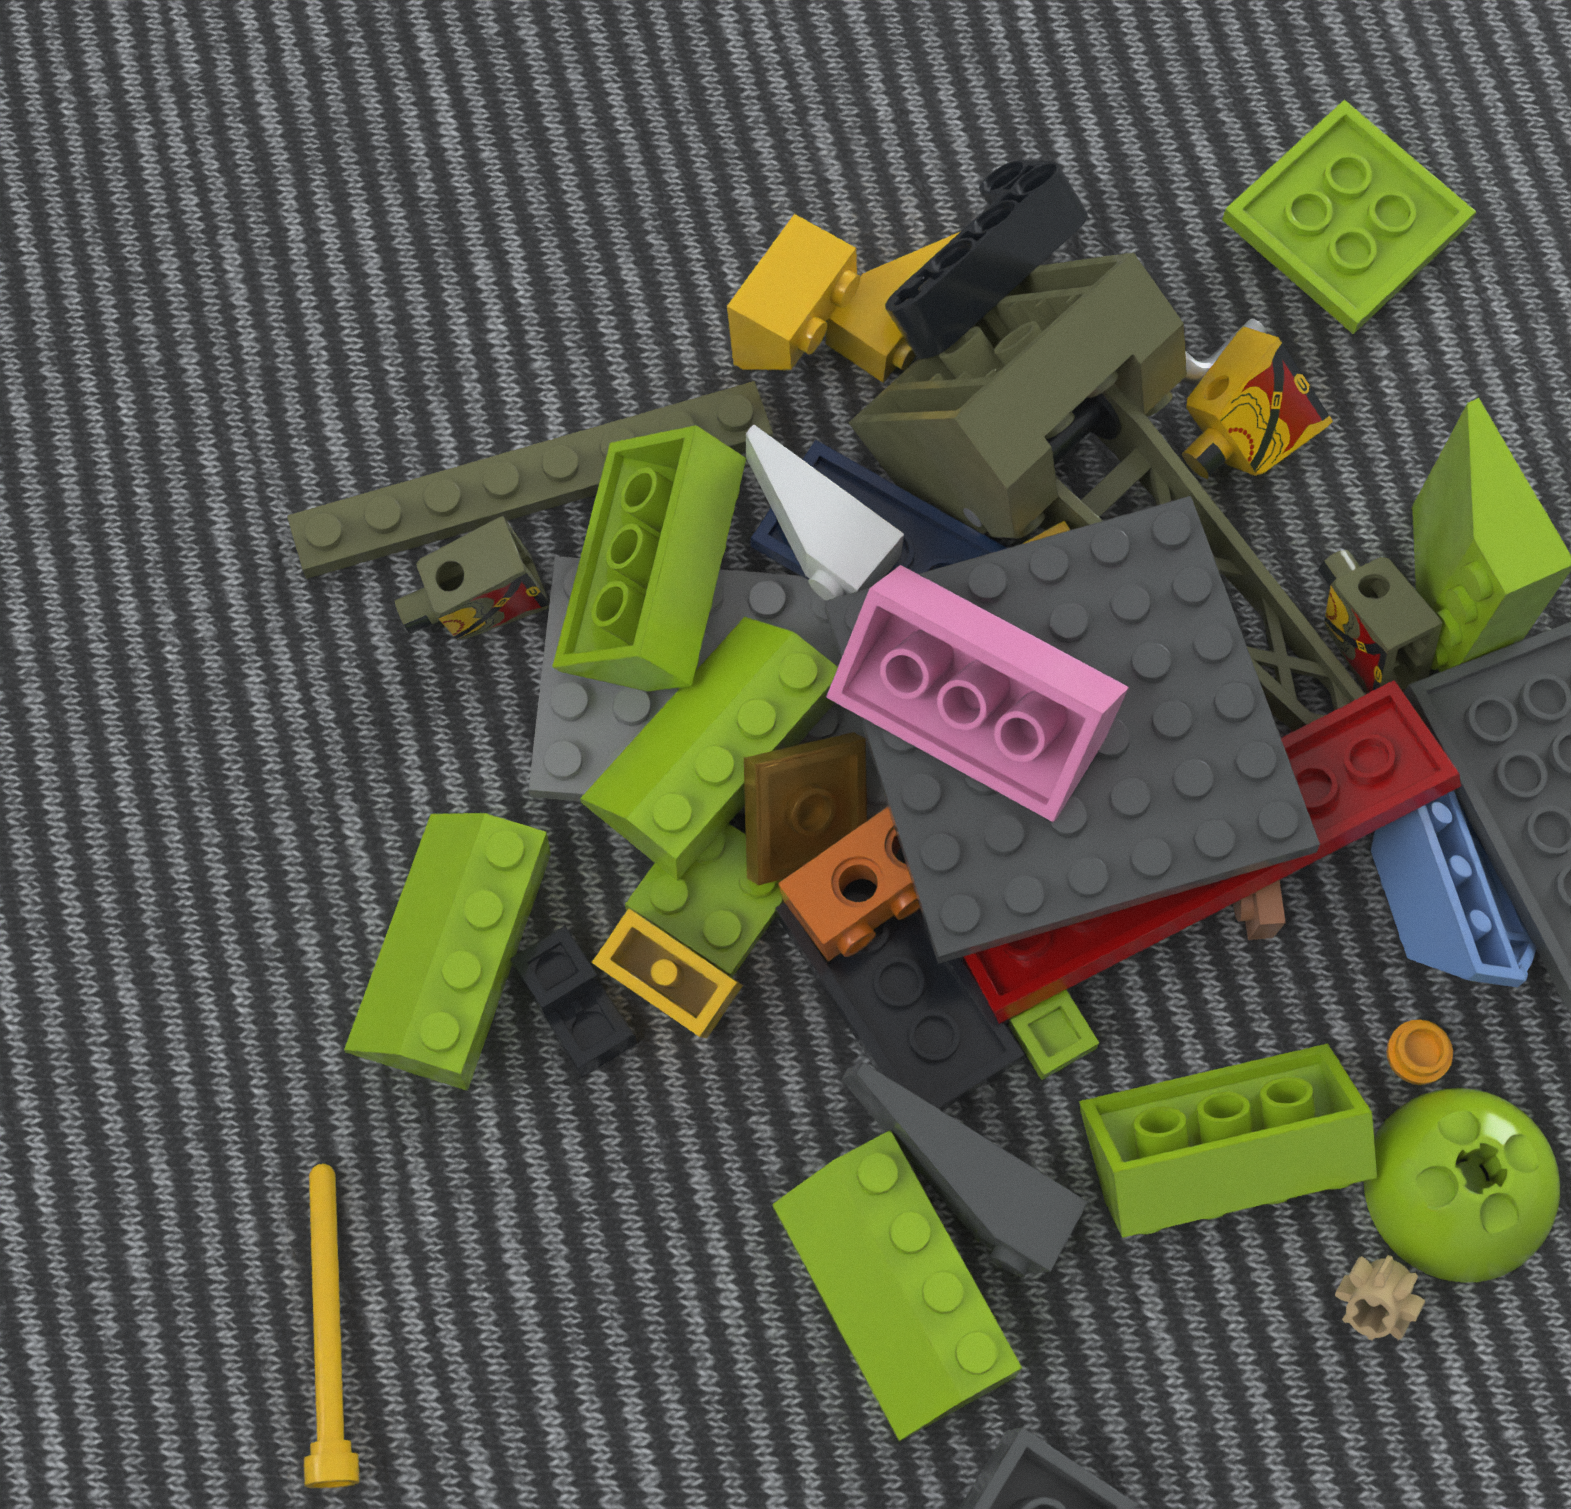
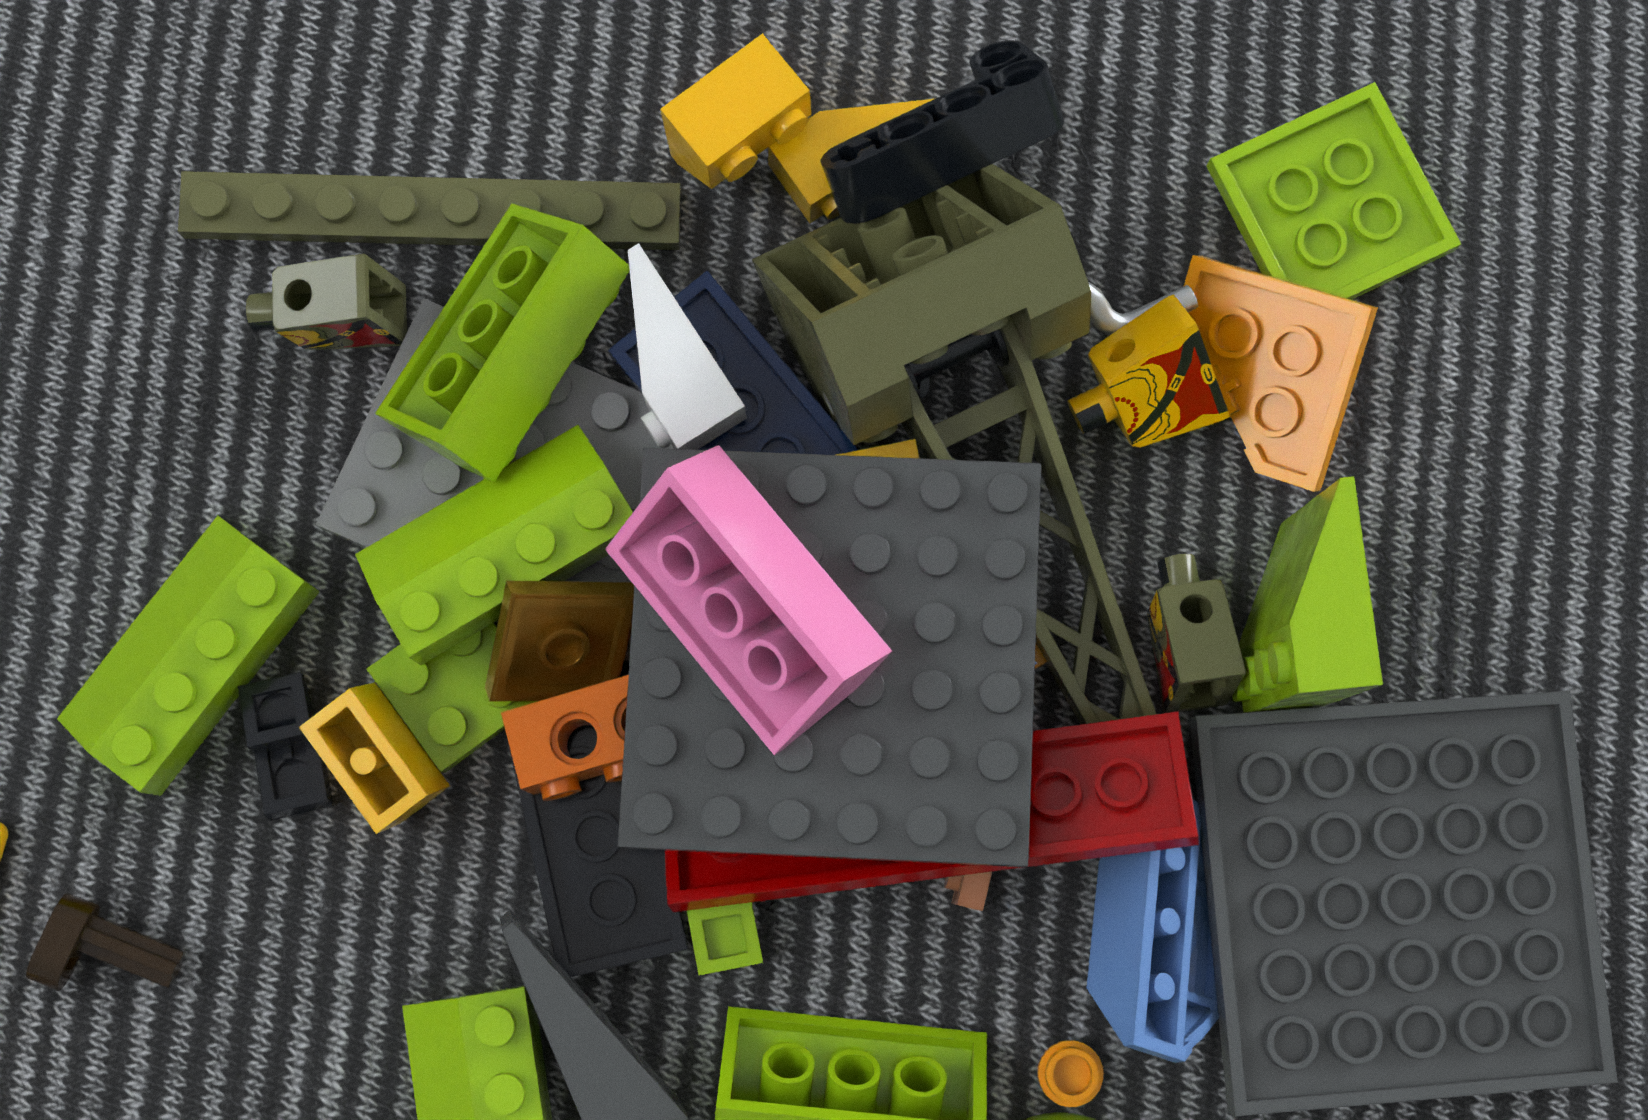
camera: 15 degrees right, 10 degrees up
(441, 1234) = (78, 929): none -> dark brown piece
(1365, 360) = (1281, 364): none -> light orange plate

